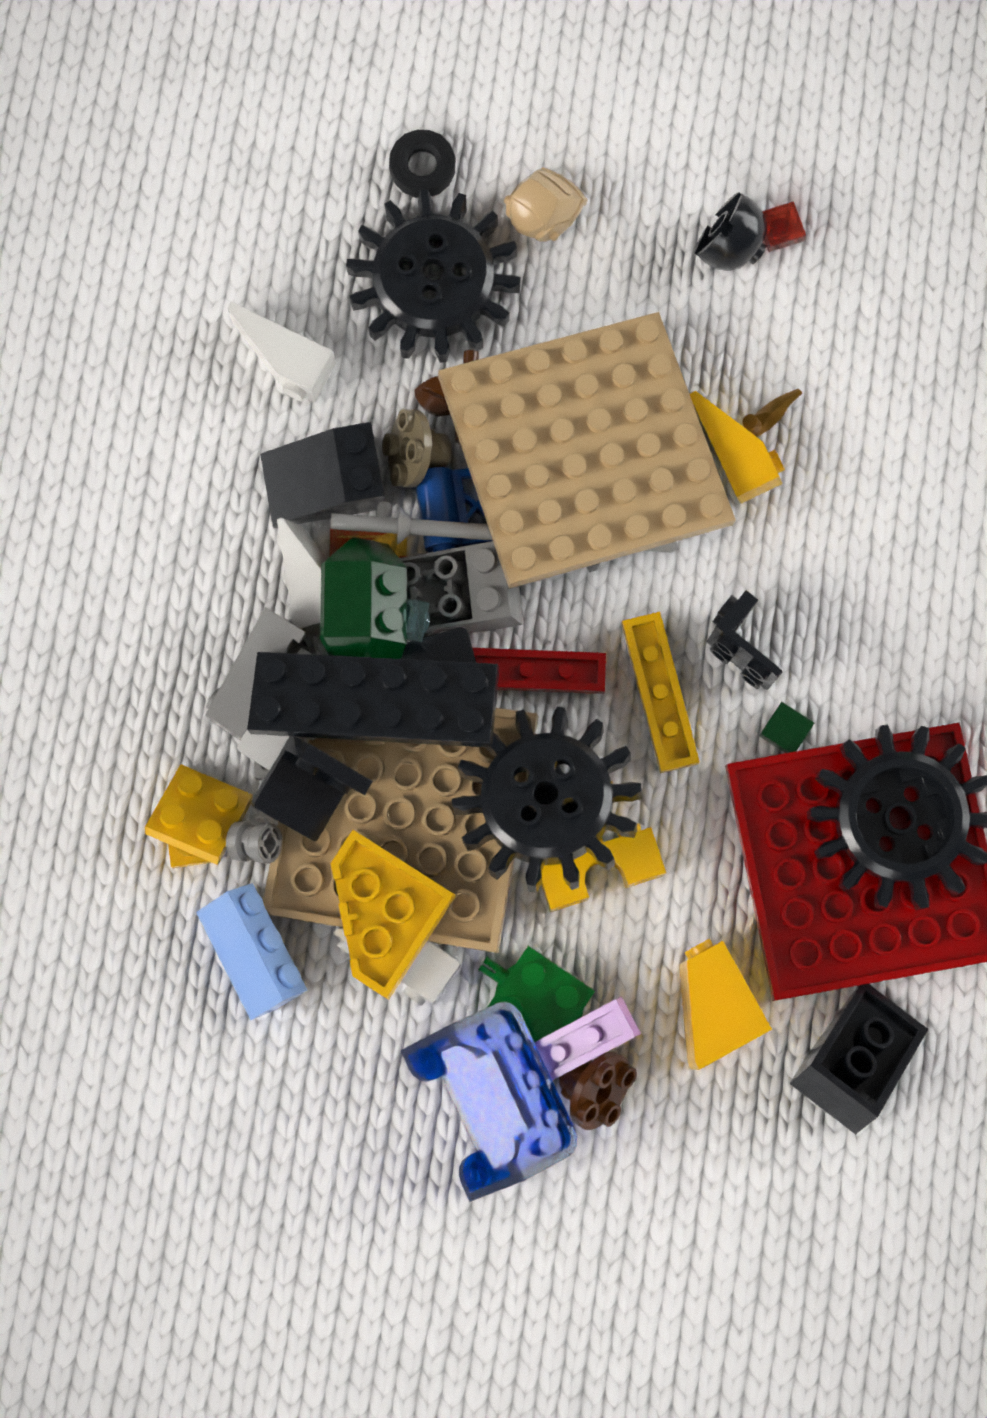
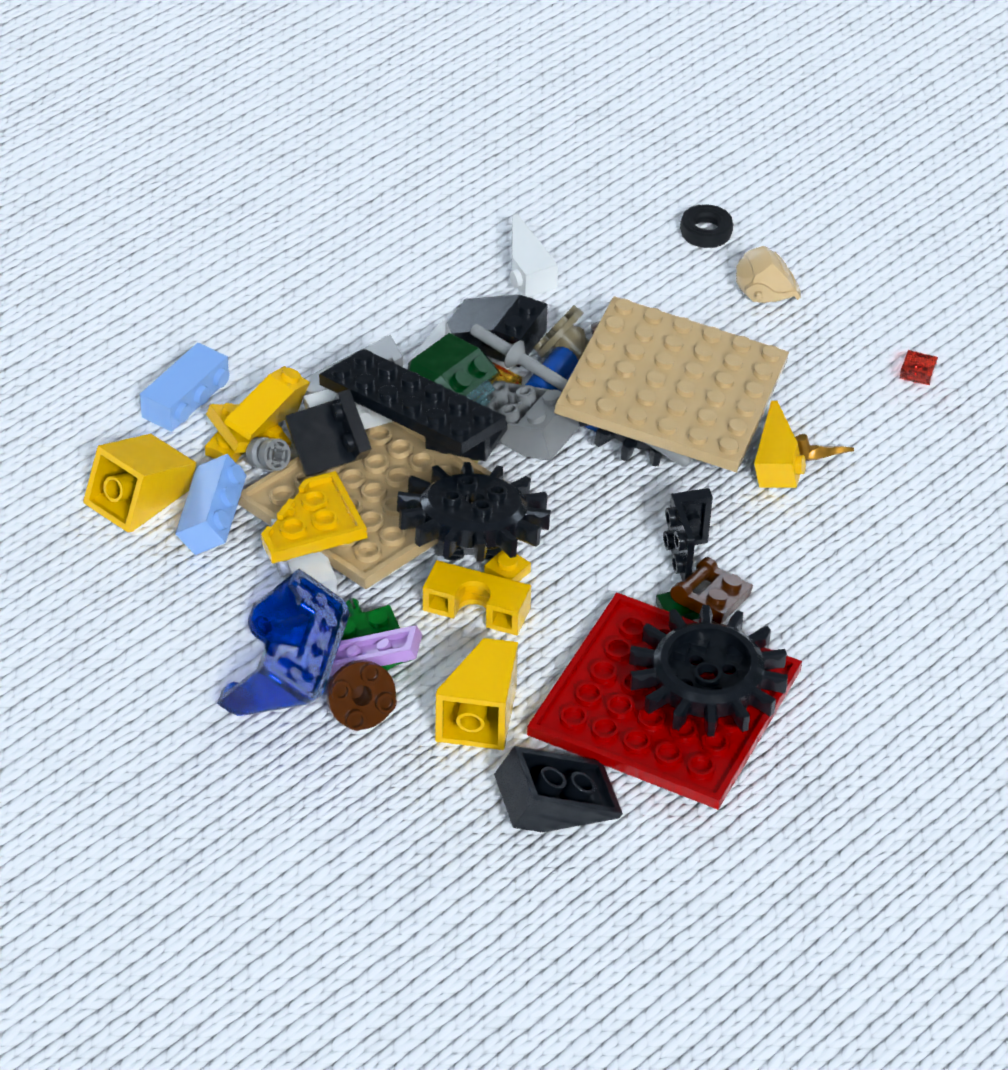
camera: 35 degrees right, 35 degrees down
(85, 802) = (184, 387): none -> light blue brick
(148, 968) = (136, 480): none -> yellow slope
(205, 785) = (268, 403): none -> yellow slope
(458, 298) = (685, 282): black gear -> none
(547, 670) = (562, 497): red plate -> none
(660, 692) = (607, 539): yellow plate -> none
(734, 236) = (878, 349): black cylinder -> none
(822, 689) = (723, 594): none -> reddish brown plate

